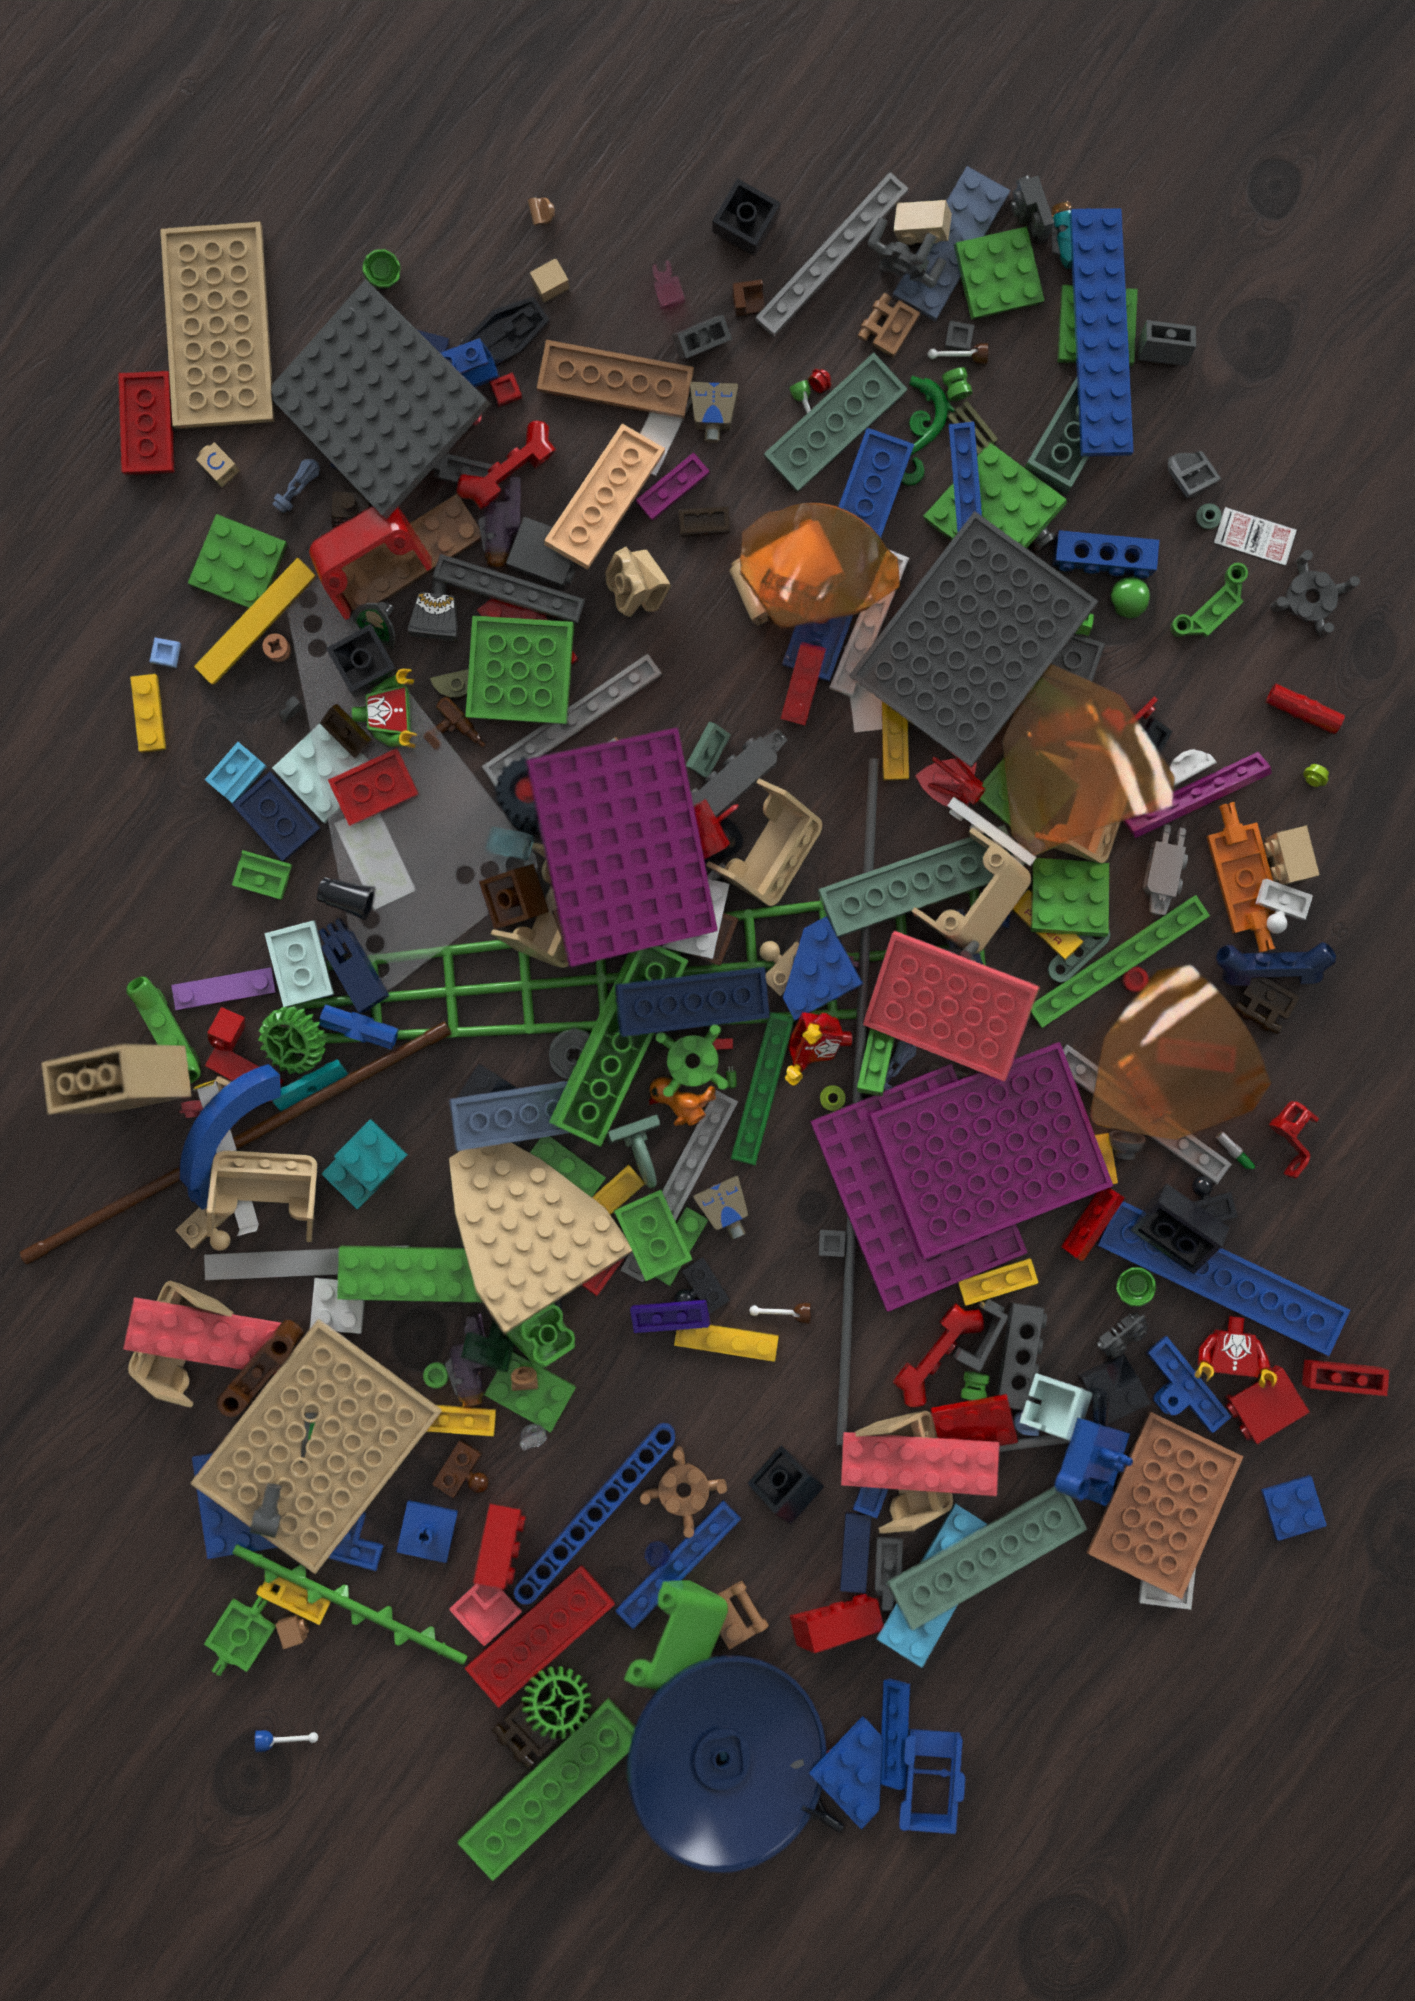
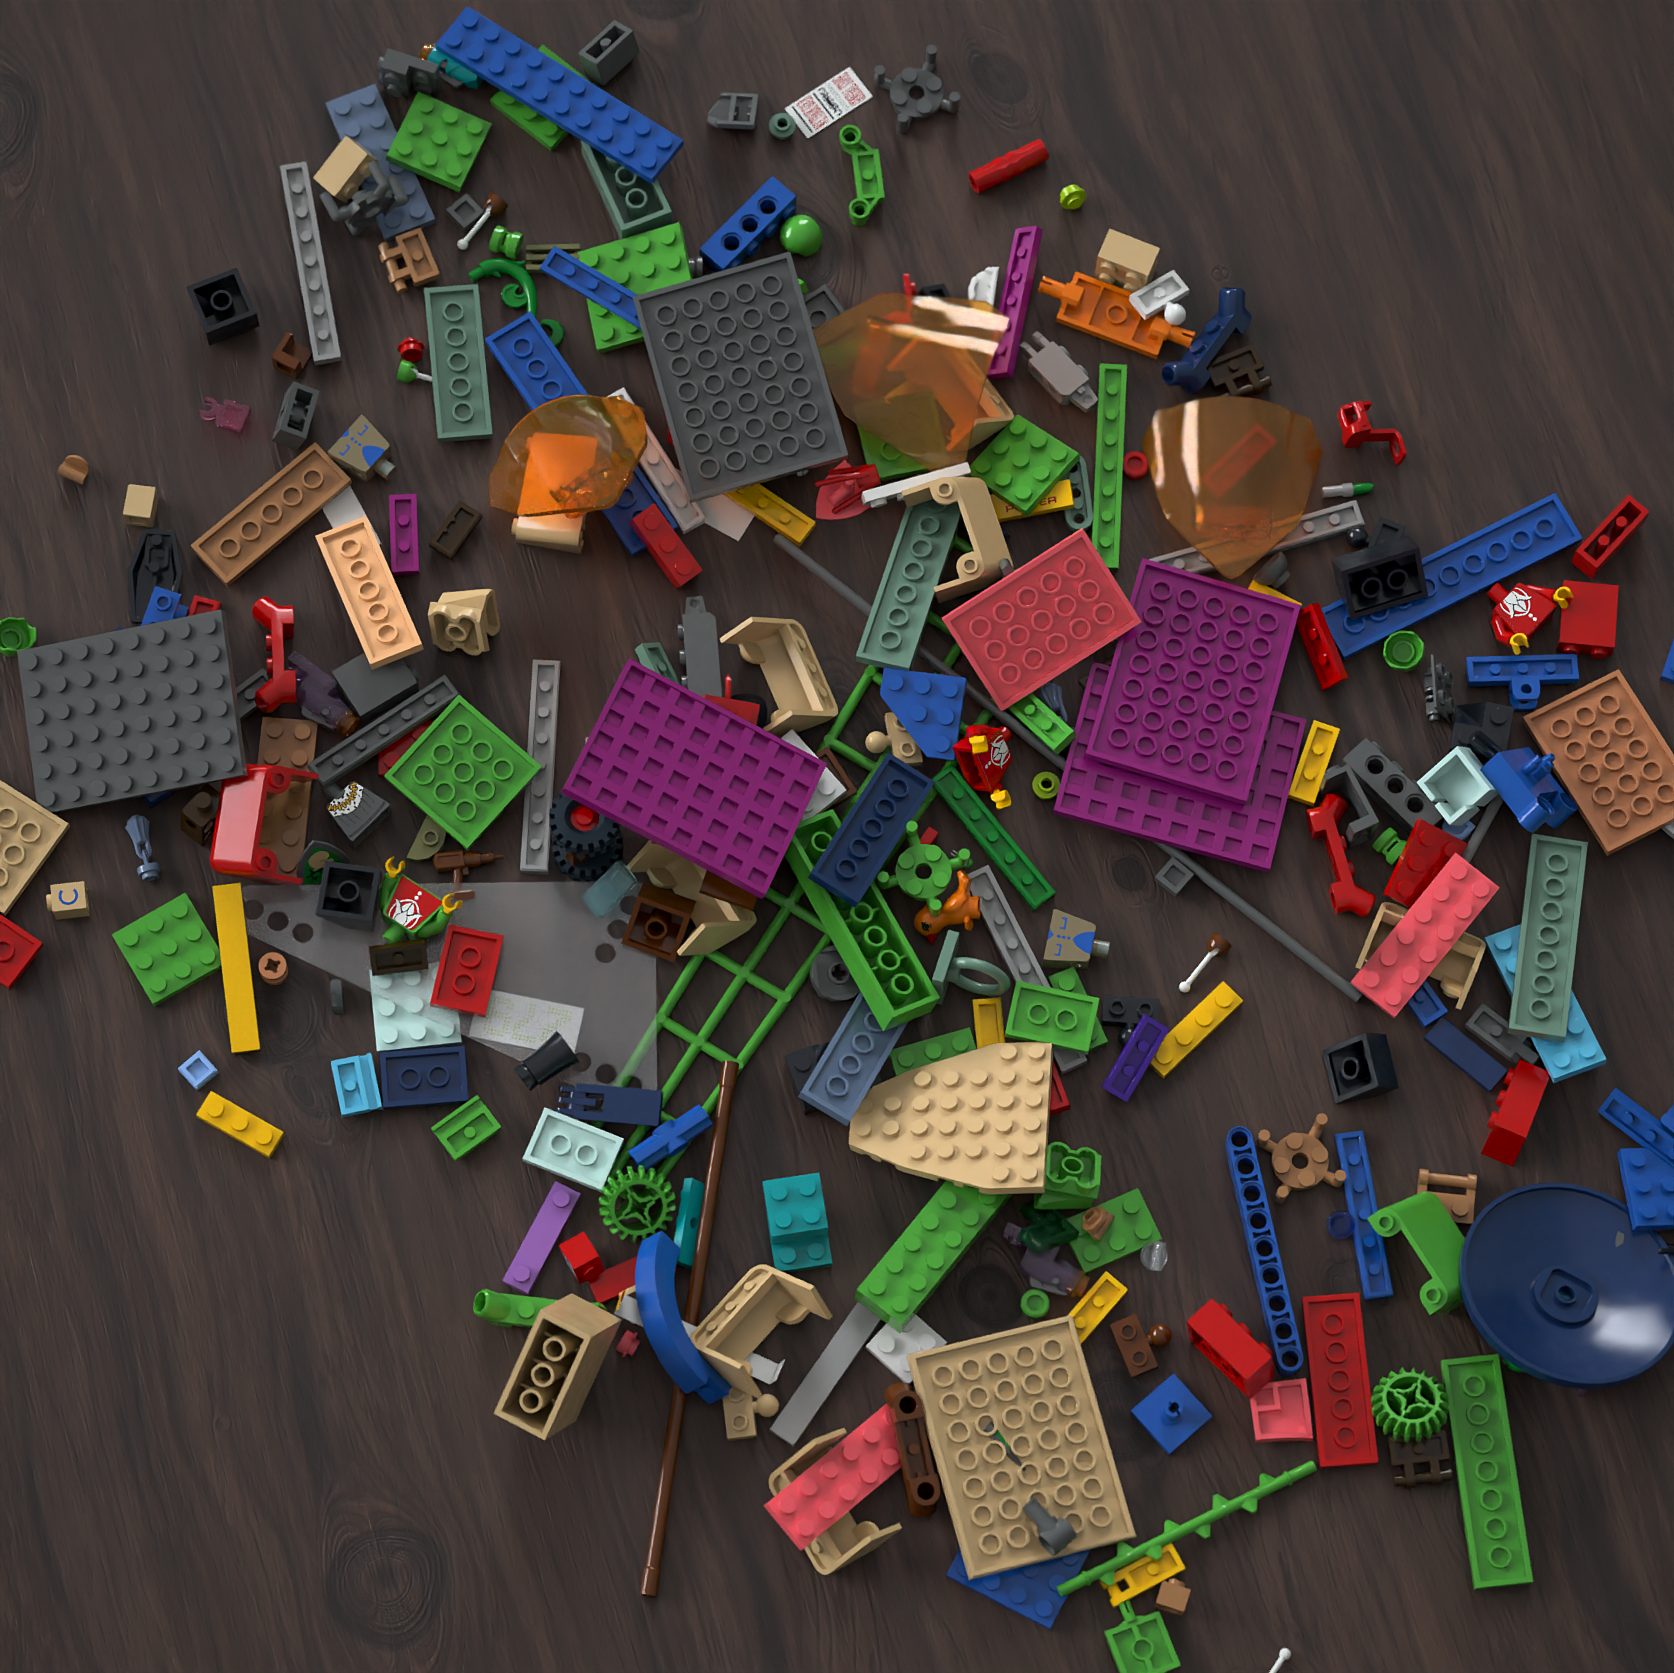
camera: 55 degrees left, 15 degrees down
(356, 1550) = (1144, 1488): blue tile -> none

